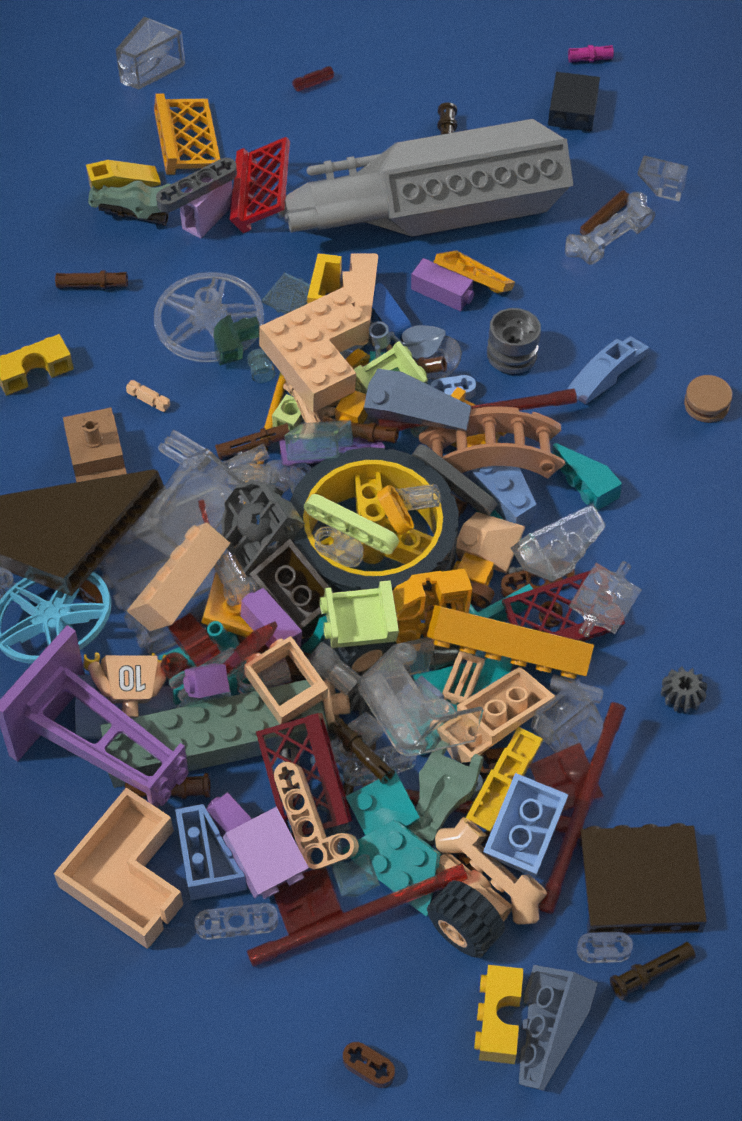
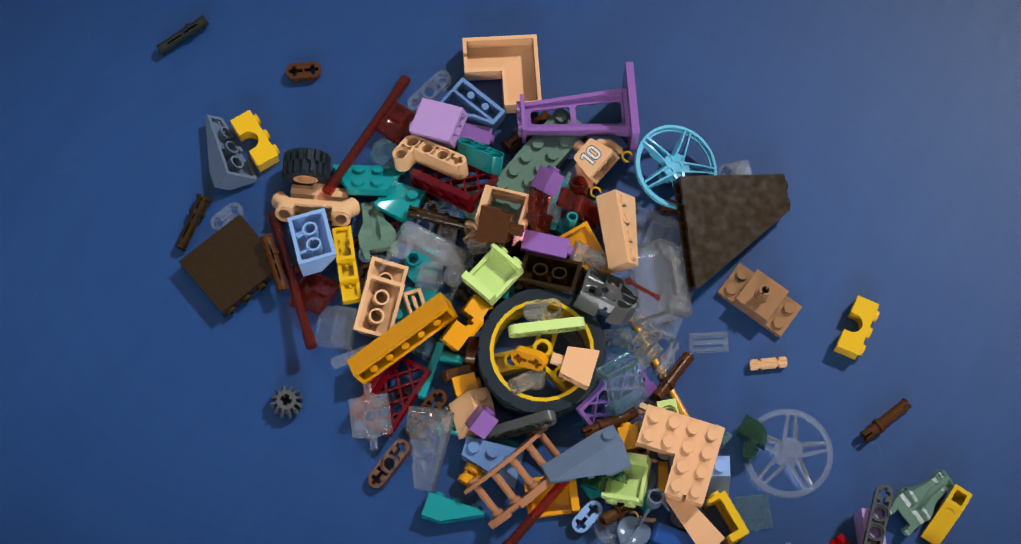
camera: 135 degrees right, 15 degrees up
(252, 776) = (481, 155): none -> teal beam
(313, 650) = (496, 225): none -> reddish brown torso
(352, 469) = (576, 365): none -> light nougat torso
(491, 512) = (482, 421): none -> medium lavender brick
(543, 491) = (470, 471): none -> light orange wheel
(585, 851) = (267, 240): none -> reddish brown pin
(624, 547) = (382, 463): none -> reddish brown beam

